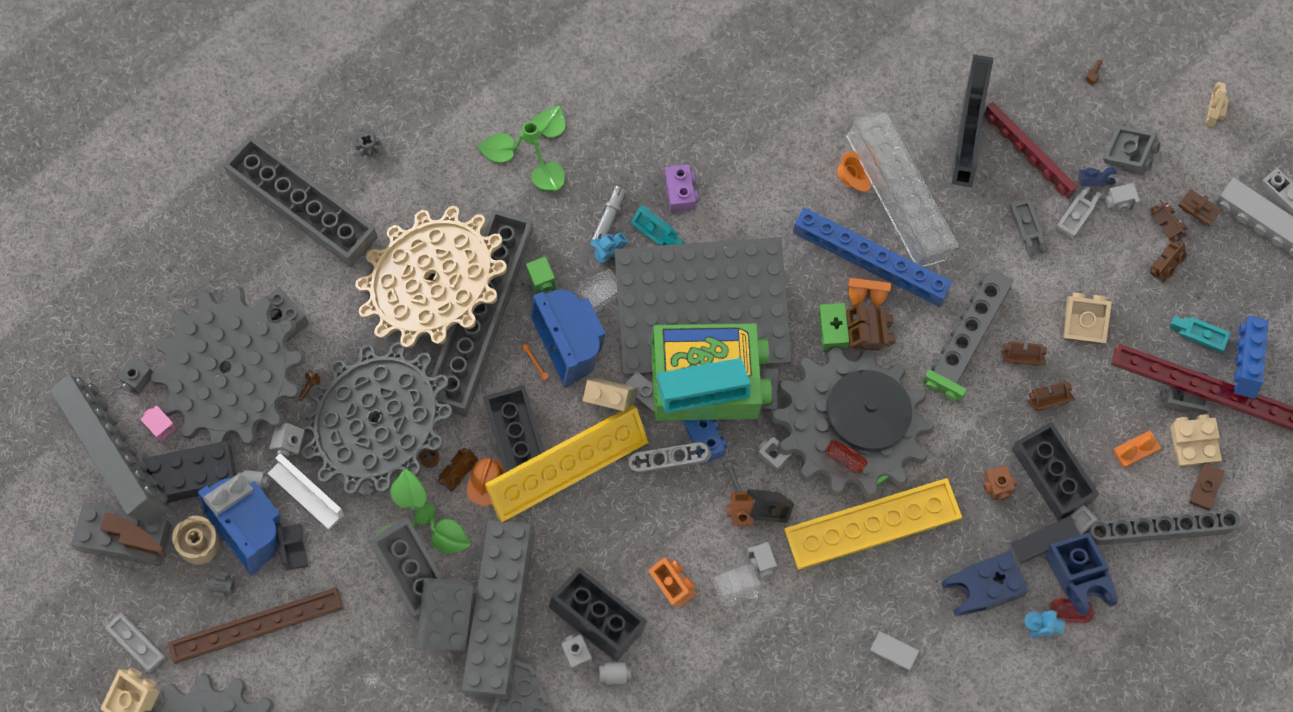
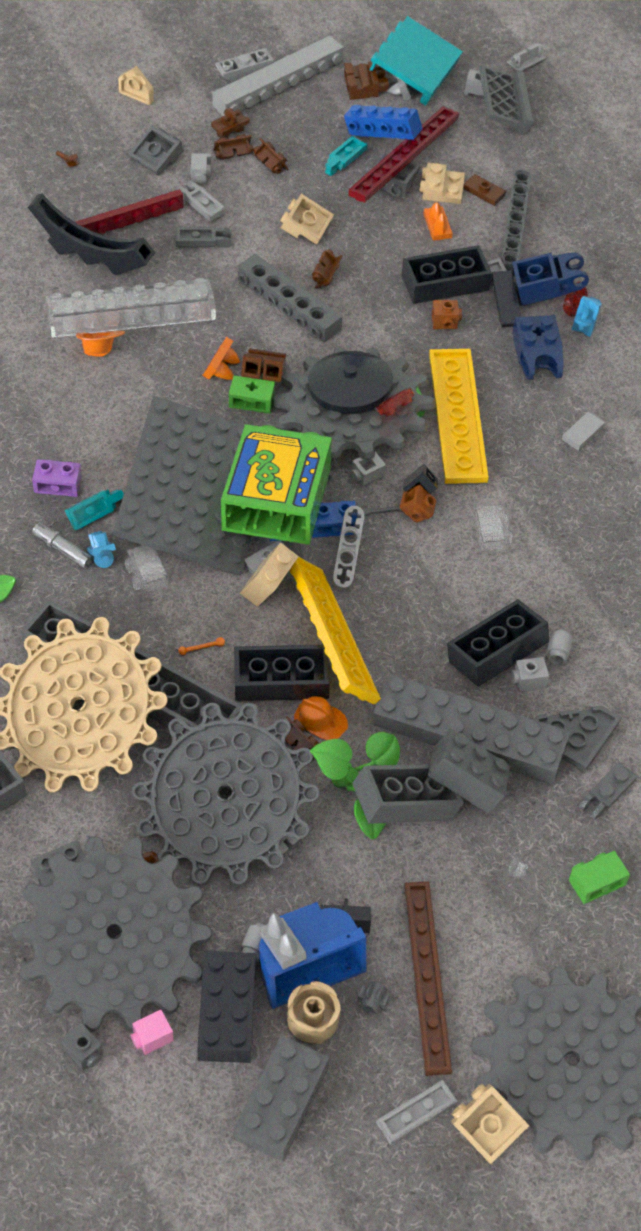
camera: 80 degrees left, 15 degrees down
(110, 449) = (177, 1075): brick -> none
(130, 535) = (297, 1068): reddish brown slope -> none
(286, 439) = (219, 894): light grey brick -> none
(306, 493) = (284, 889): white fence -> none
(541, 276) = (117, 608): bright green brick -> none
(570, 329) = (187, 597): blue container -> none
(673, 582) = (479, 574): orange brick -> none
(703, 385) = (302, 469): teal brick -> none
(762, 559) = (469, 499): light grey brick -> none
(872, 257) = (189, 349): blue brick -> none
(937, 382) = (339, 329): bright green plate -> none
(1041, 398) = (373, 262): reddish brown hinge -> none
(1094, 177) = (173, 181): dark blue plate -> none

